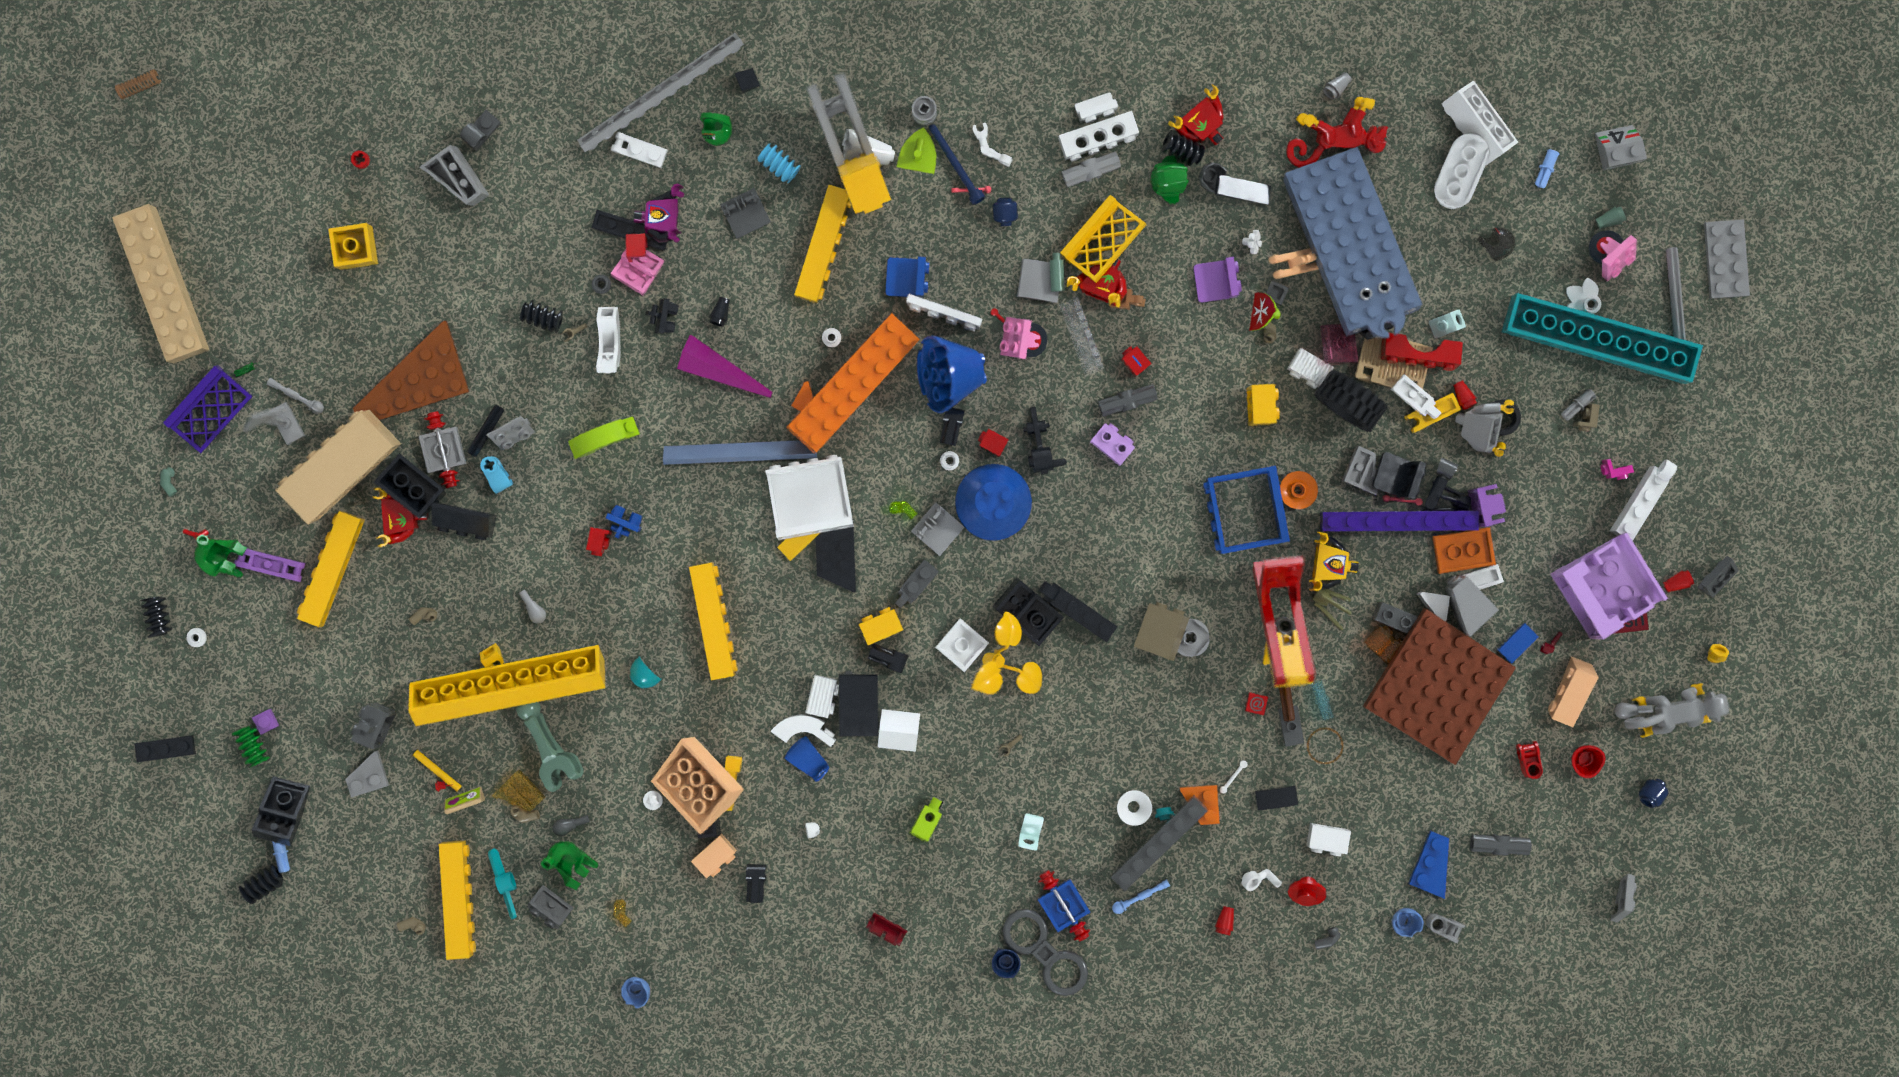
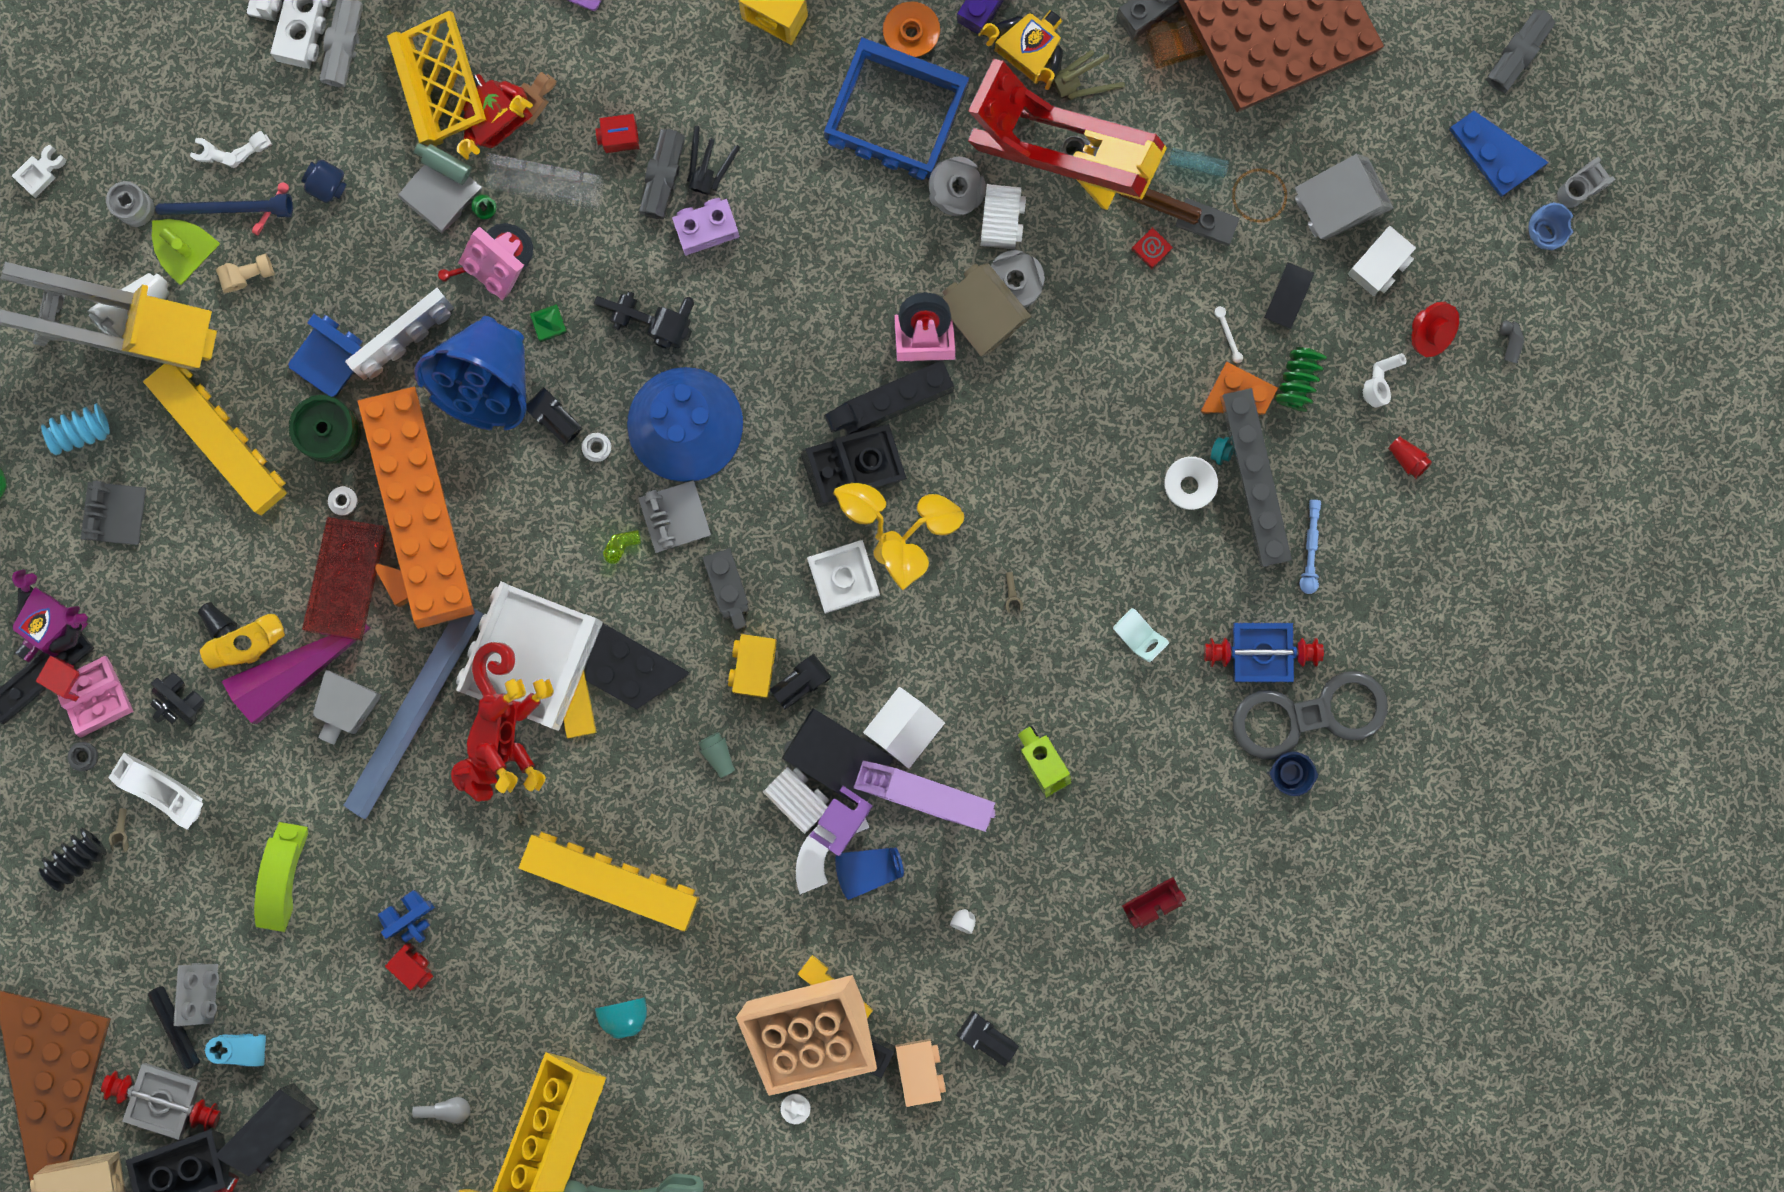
camera: 55 degrees left, 5 degrees down
(718, 411) = (342, 705): none -> light grey torso
(730, 341) = (262, 633): none -> yellow piece
(756, 505) = (493, 730): none -> red animal
(788, 367) = (344, 579): none -> clear red plate
(820, 636) = (717, 754): none -> sand green cone
(823, 732) = (842, 821): none -> medium lavender panel
(865, 769) = (925, 795): none -> lavender window
(867, 314) = (320, 412): none -> dark green wheel
(908, 45) = (36, 174): none -> white plate
(919, 195) = (234, 278): none -> tan leg
(992, 442) = (607, 376): red brick -> none
(1003, 389) = (548, 323): none -> green tile
(1046, 315) = (488, 202): none -> green hinge
(1127, 606) = (924, 329): none -> plate
(1139, 425) = (702, 178): none -> black plant
(1221, 562) = (941, 190): none -> light grey plate
(1221, 608) = (1001, 215): none -> white brick
(1232, 833) = (1299, 378): none -> green piece
(1351, 794) = (1342, 197): none -> light grey slope

